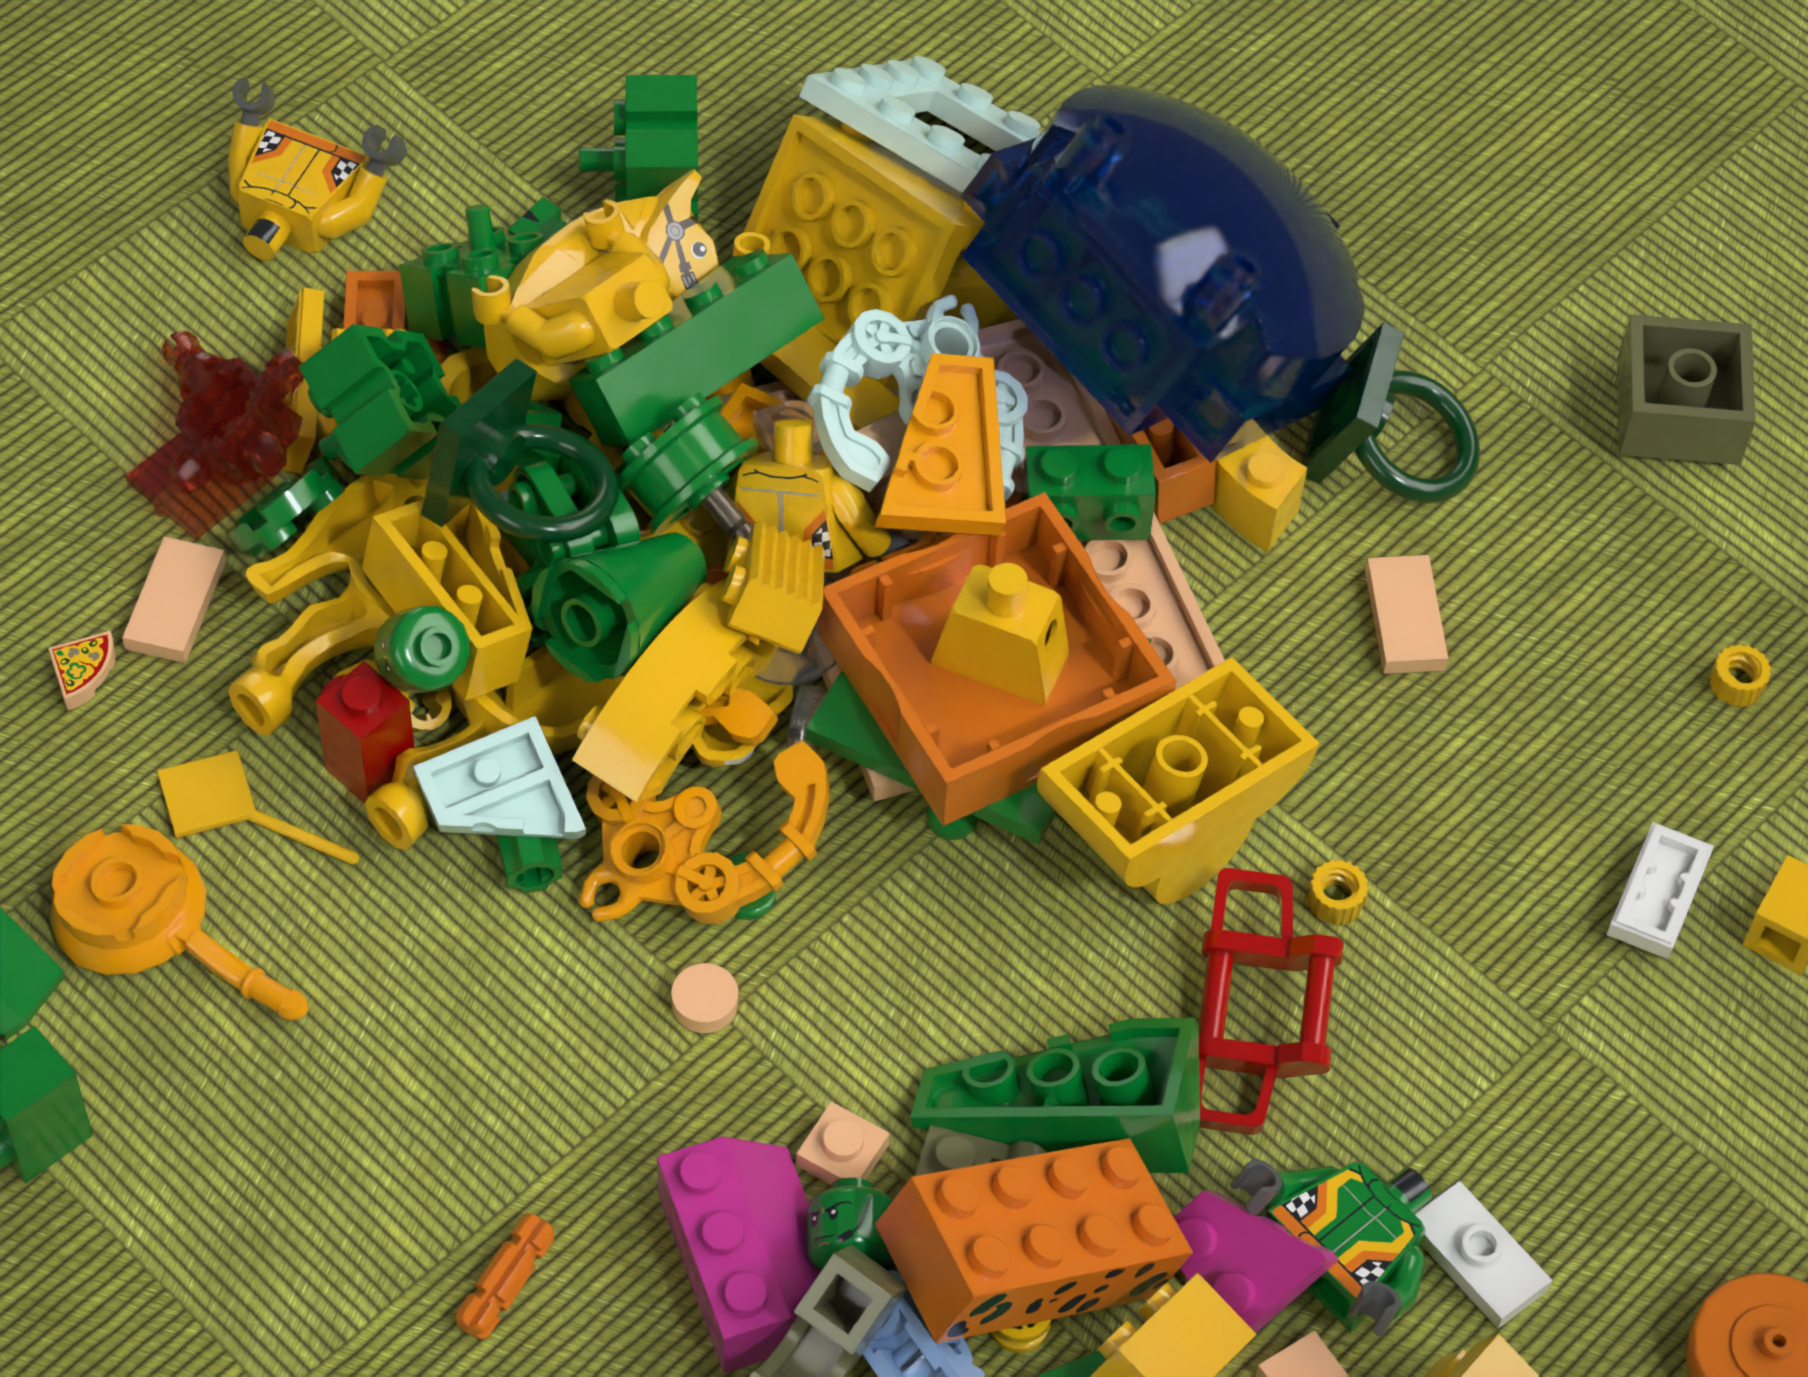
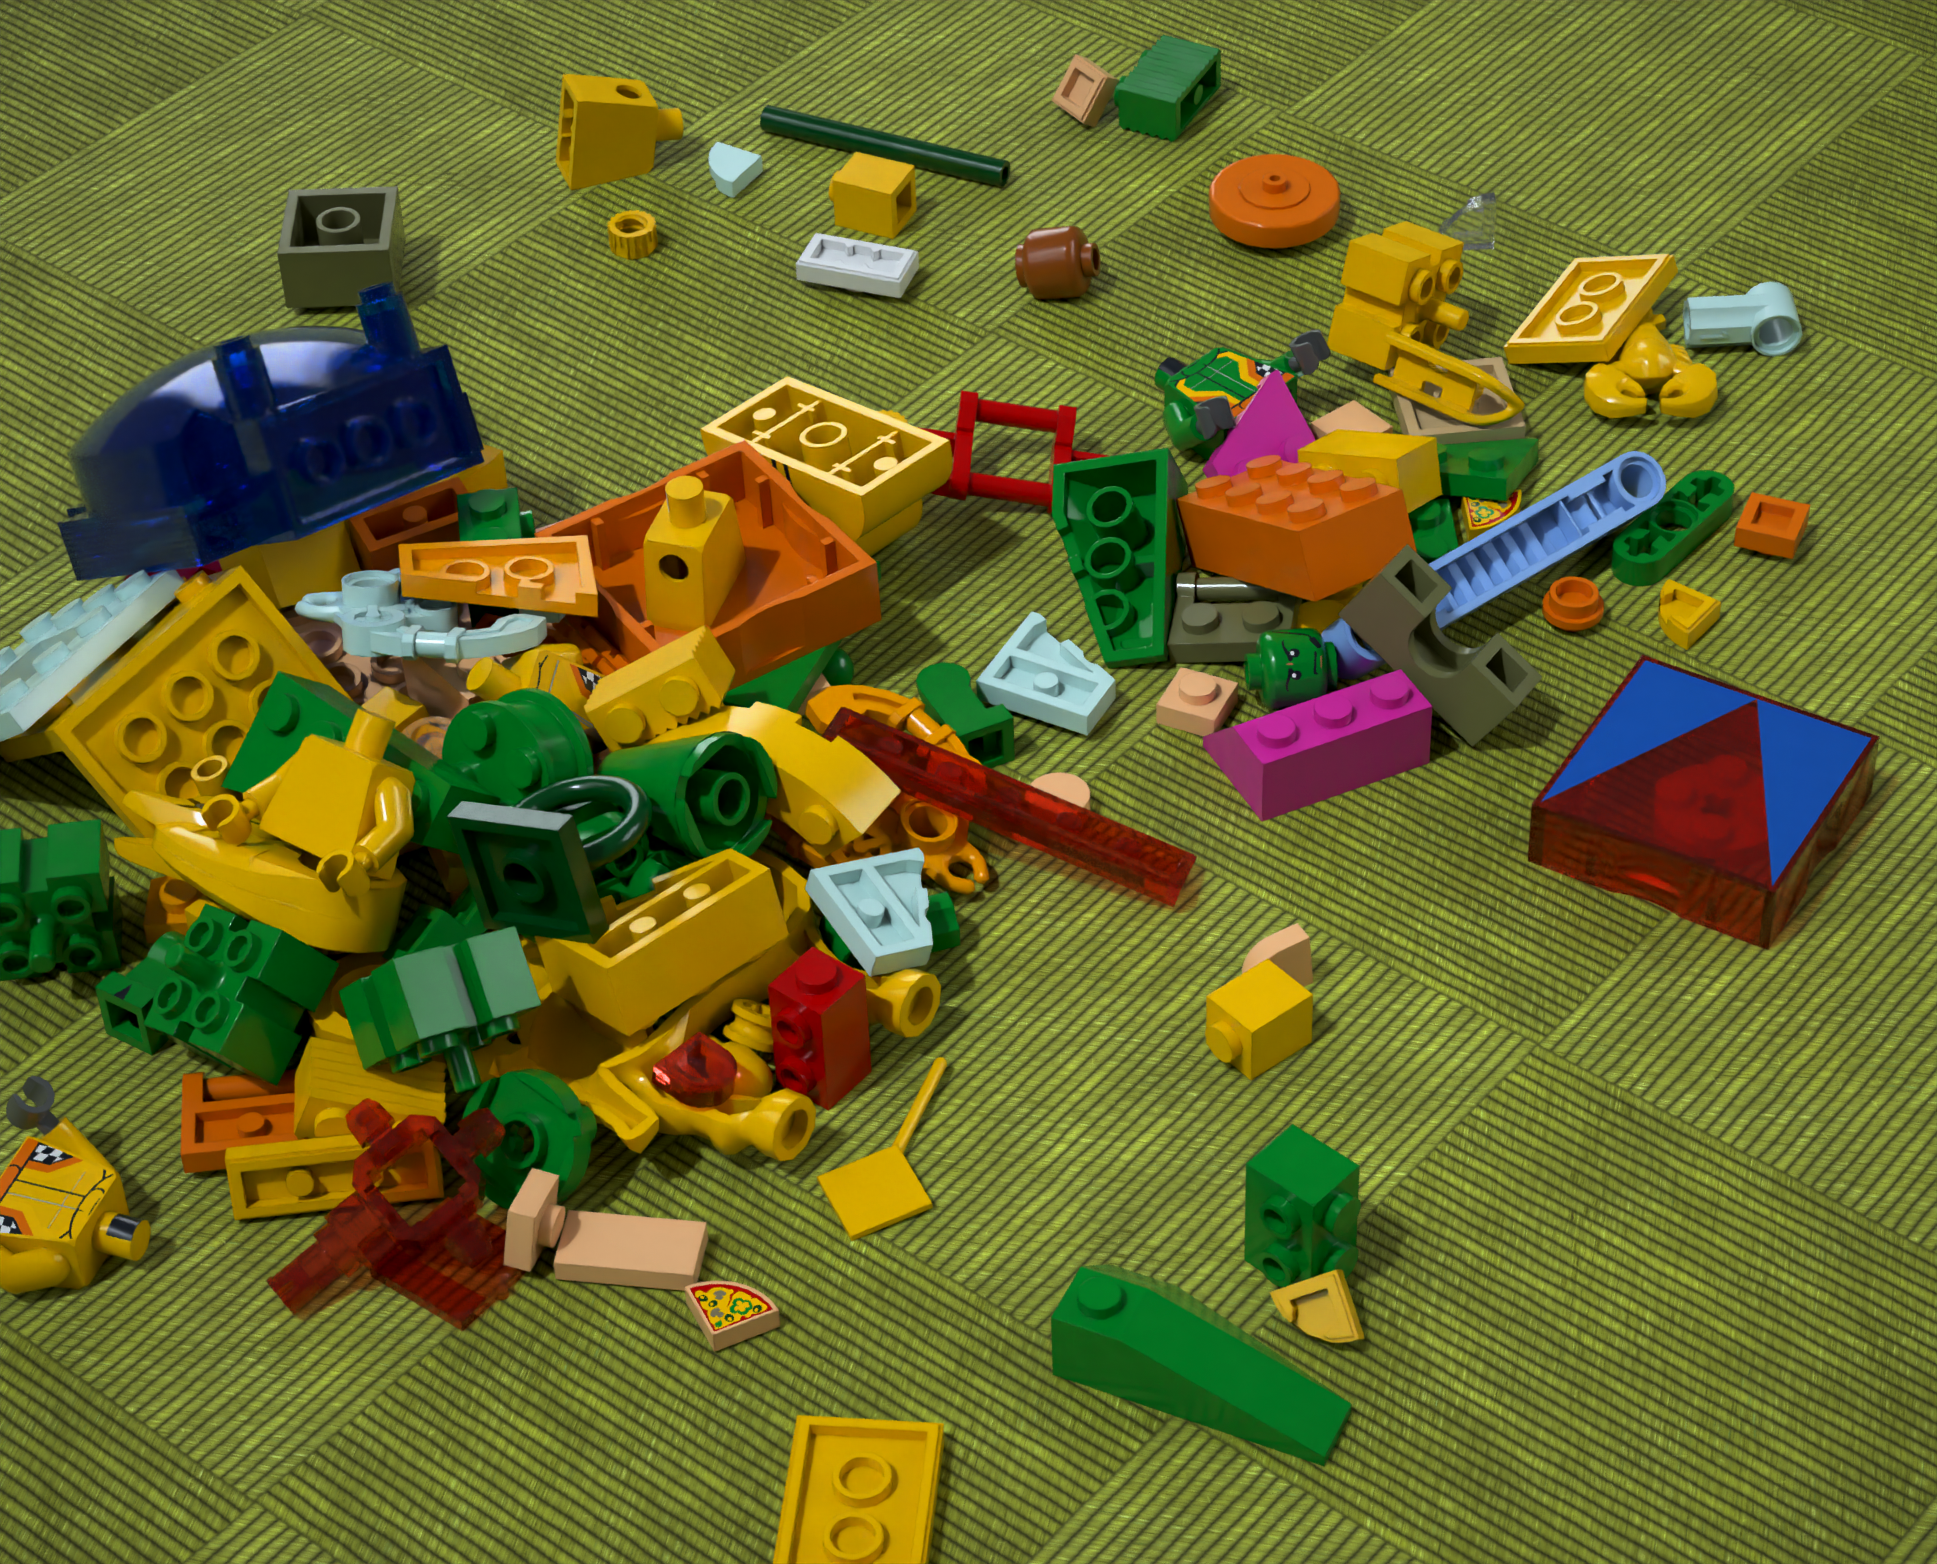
camera: 90 degrees left, 15 degrees down
(136, 904) = (1029, 1212): light orange piece -> none
(199, 513) = (533, 1220): none -> light nougat plate
(315, 627) = (697, 1073): none -> clear red tile
(331, 1126) = (1258, 1019): none -> yellow brick
(409, 1161) = (1287, 950): none -> light nougat tile
(422, 649) = (768, 917): green head -> none
(504, 1276) = (1378, 895): orange axle -> none
(648, 922) = (1018, 809): none -> clear red tile
(832, 910) = (950, 701): none -> green leg
(891, 1004) = (1047, 679): none -> light aqua wing
(1406, 614) = (581, 413): light nougat tile -> none
(1481, 1255) = (1231, 330): white plate -> none
(1641, 1089) = (1057, 262): none -> dark orange head

